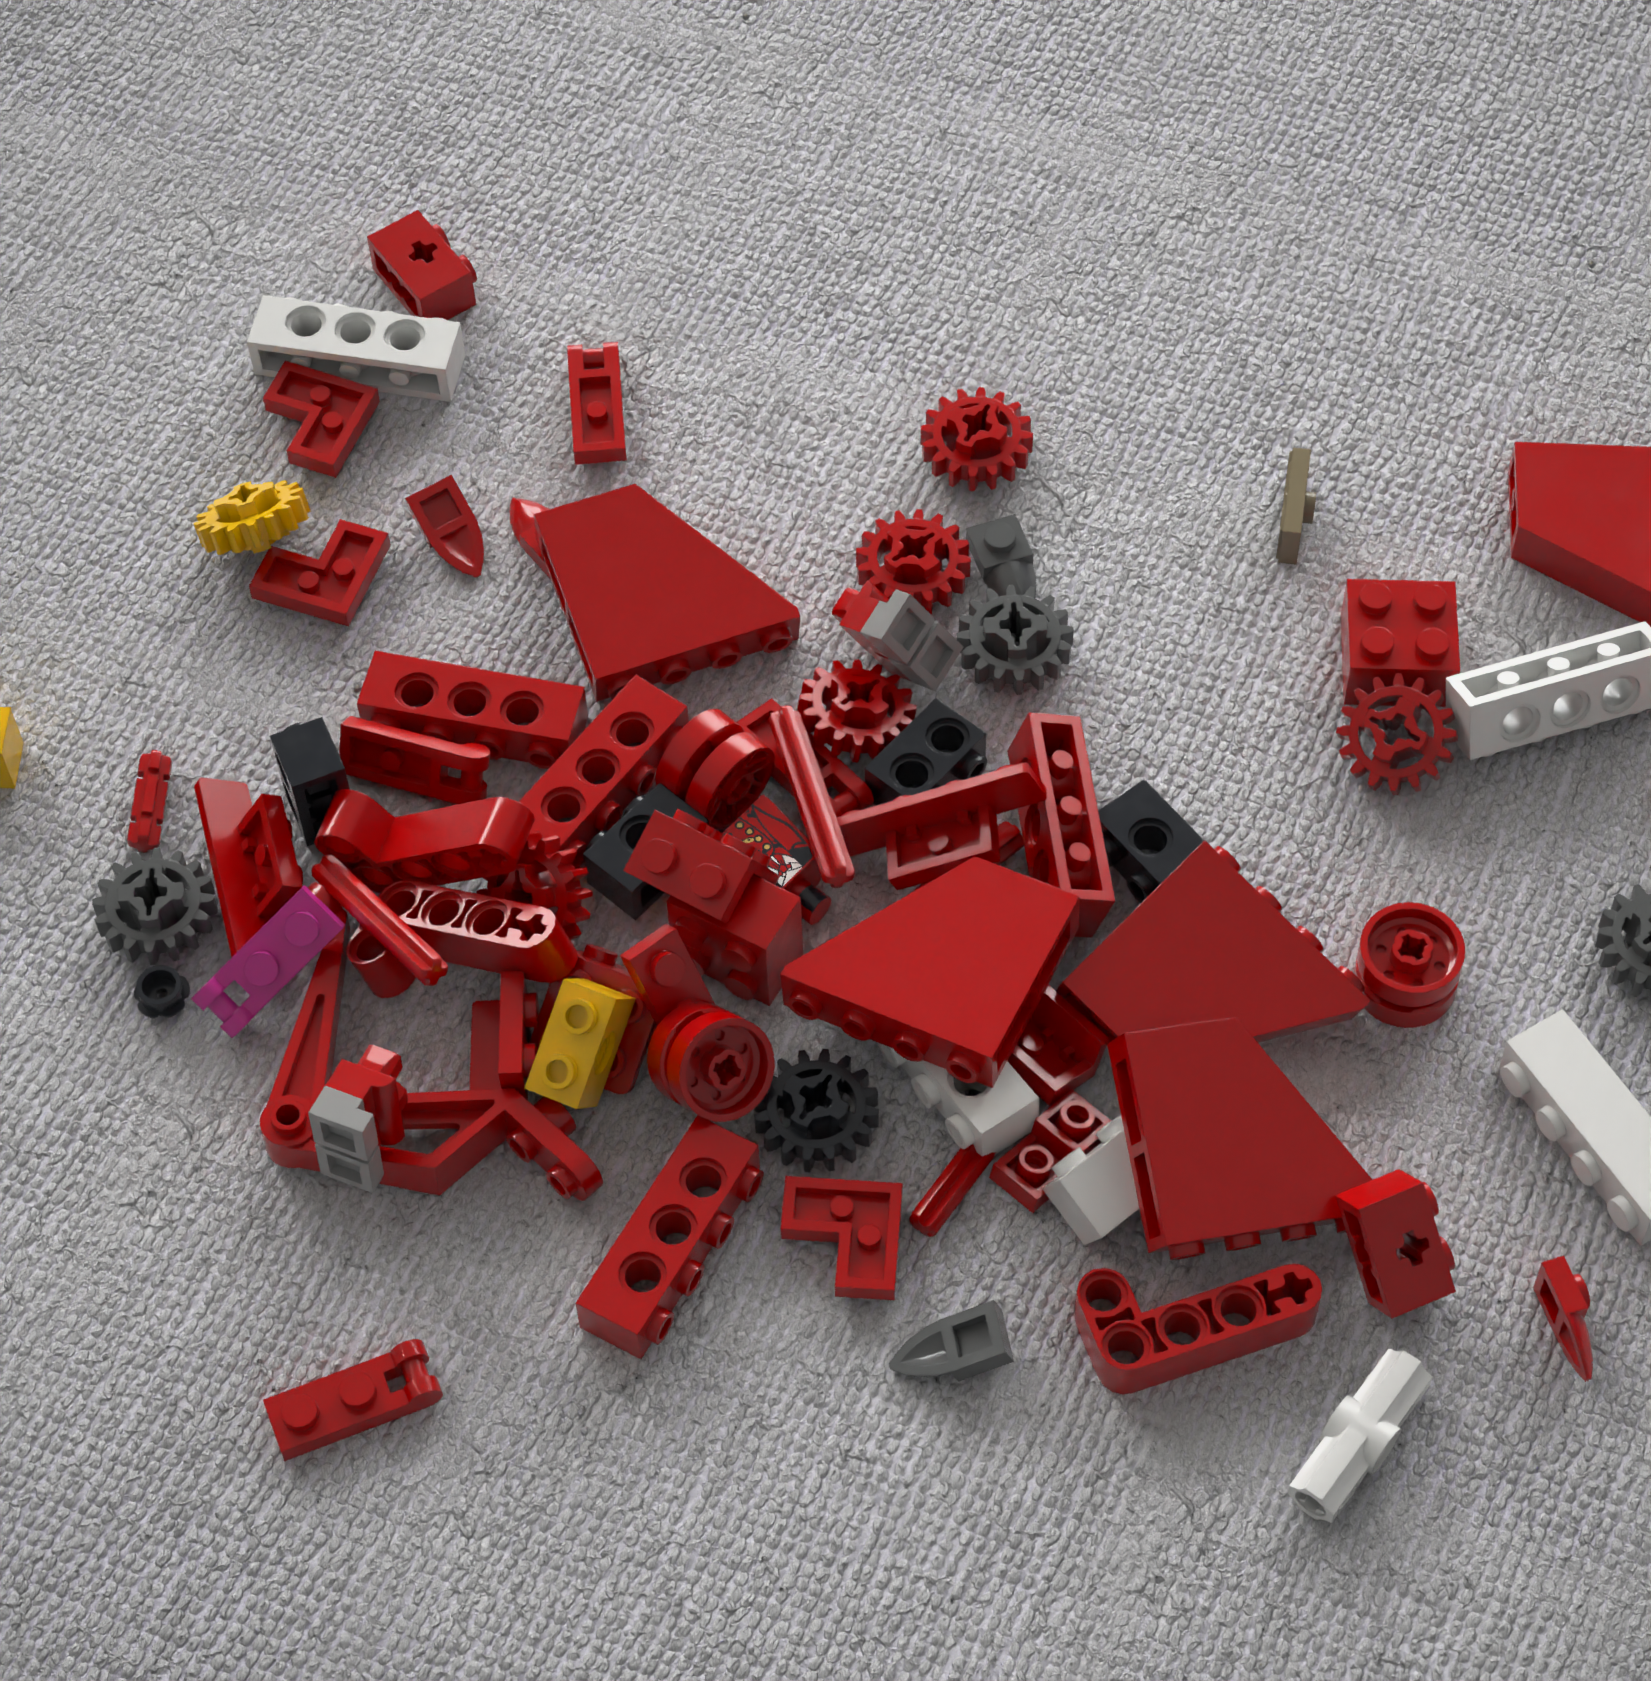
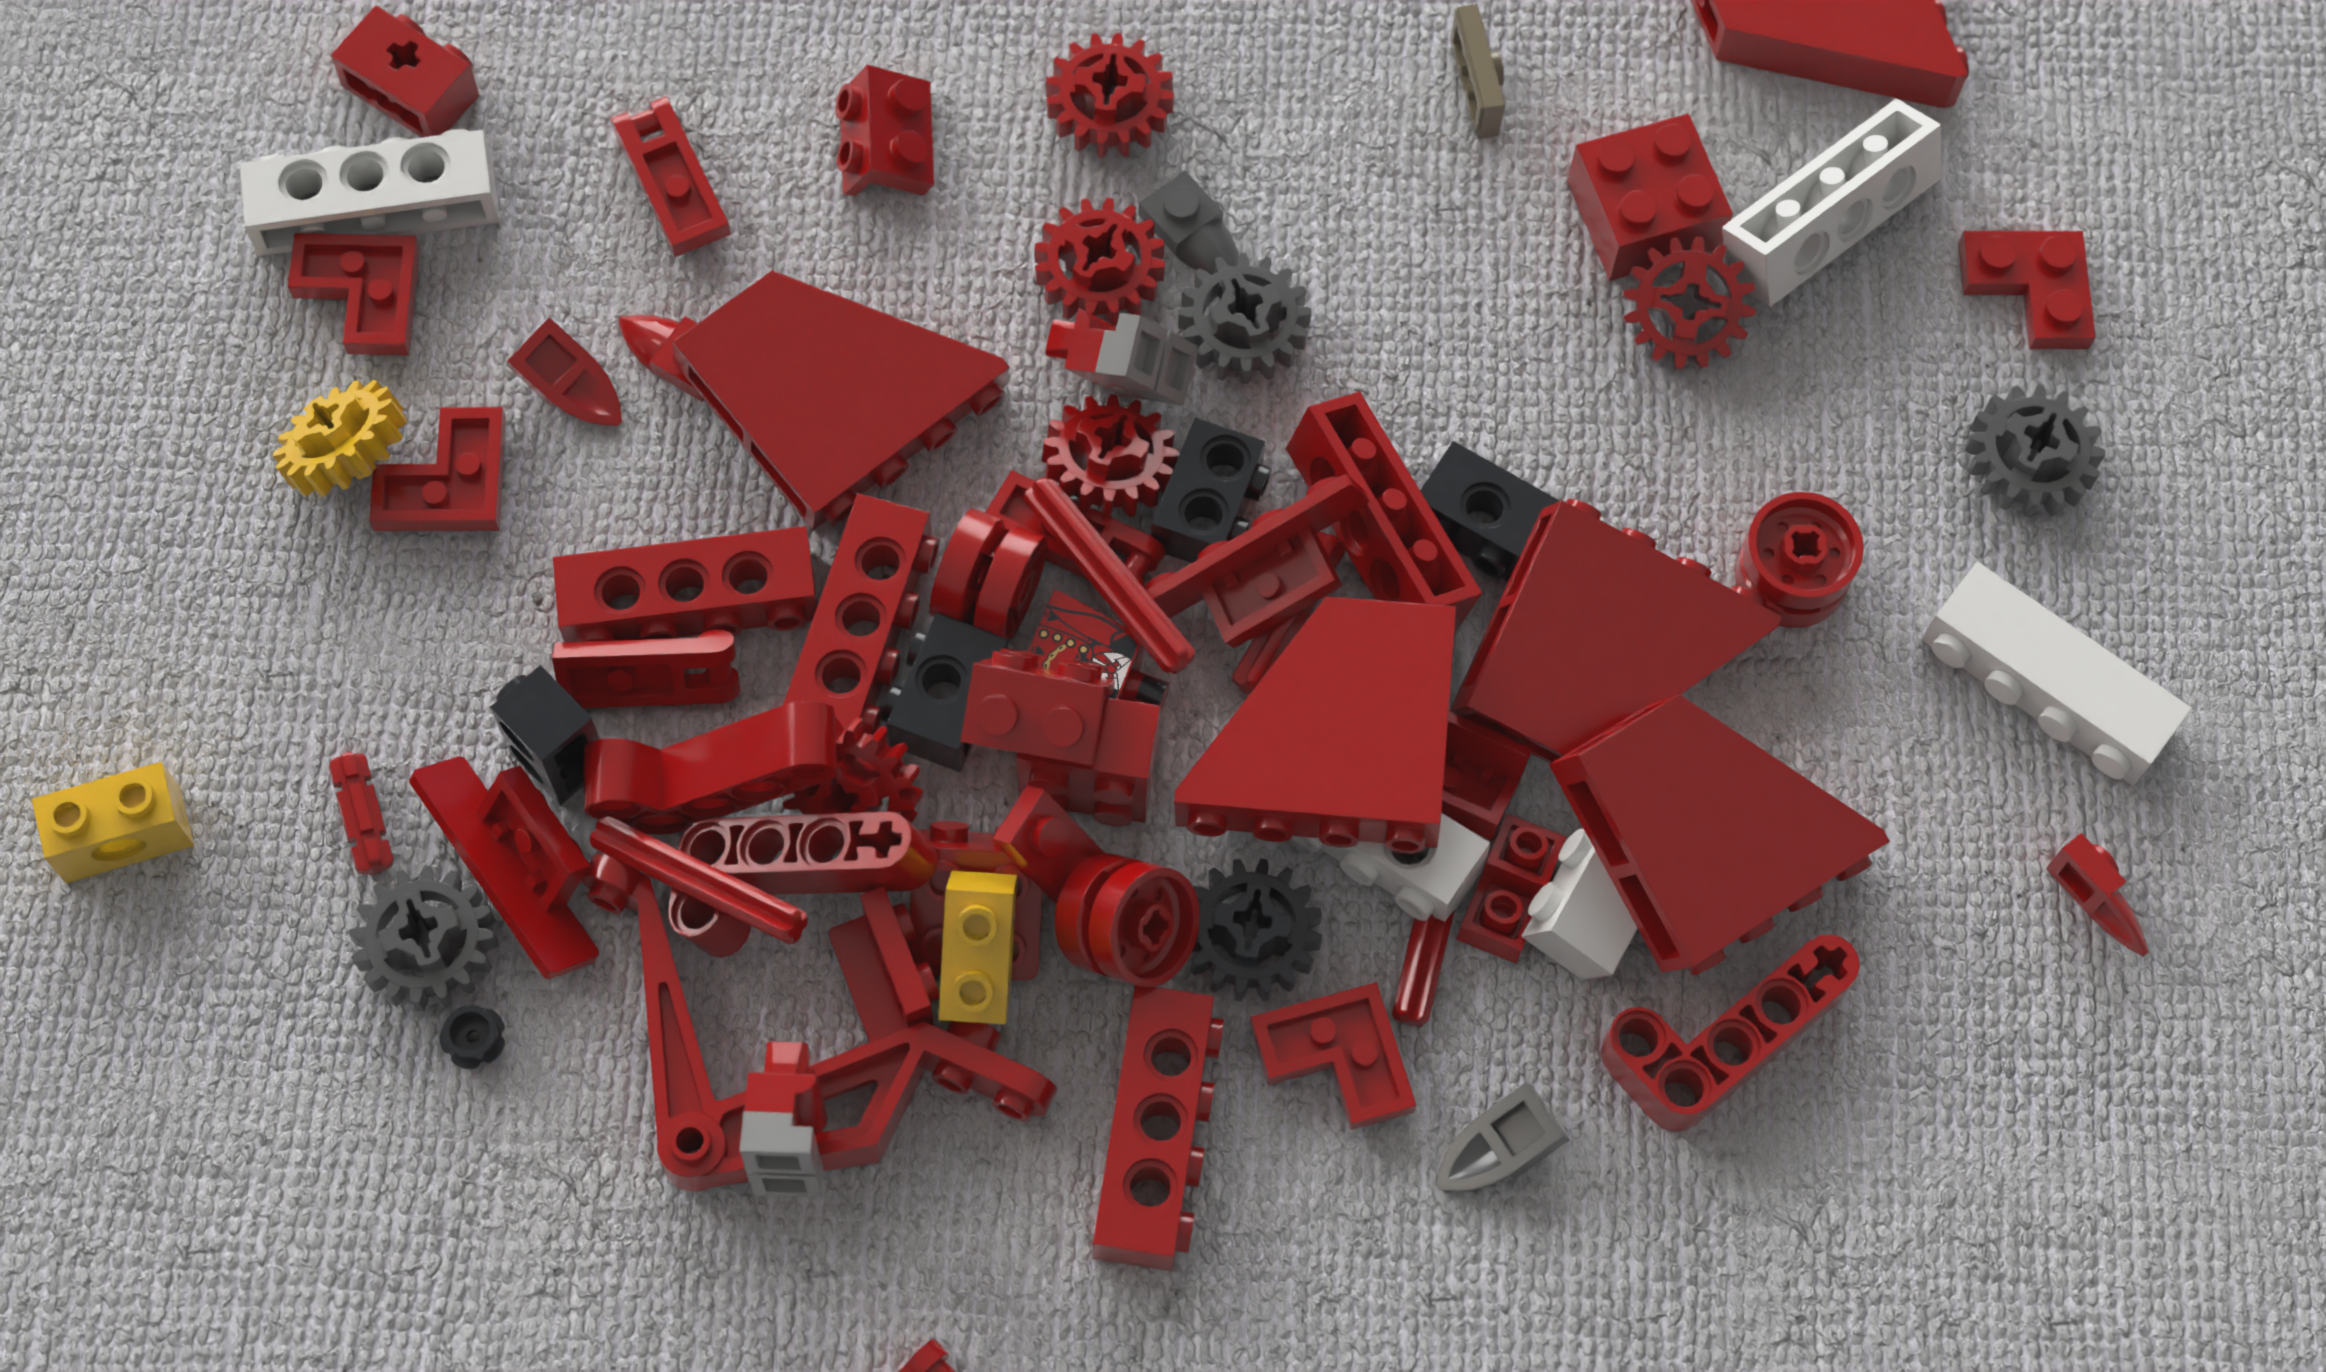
camera: 25 degrees left, 10 degrees up
(270, 959) = (587, 963): dark pink plate -> none
(783, 417) = (885, 132): none -> red bracket
(1359, 1435) = (1946, 1094): white piece -> none
(1397, 1242) = (1912, 877): red brick -> none

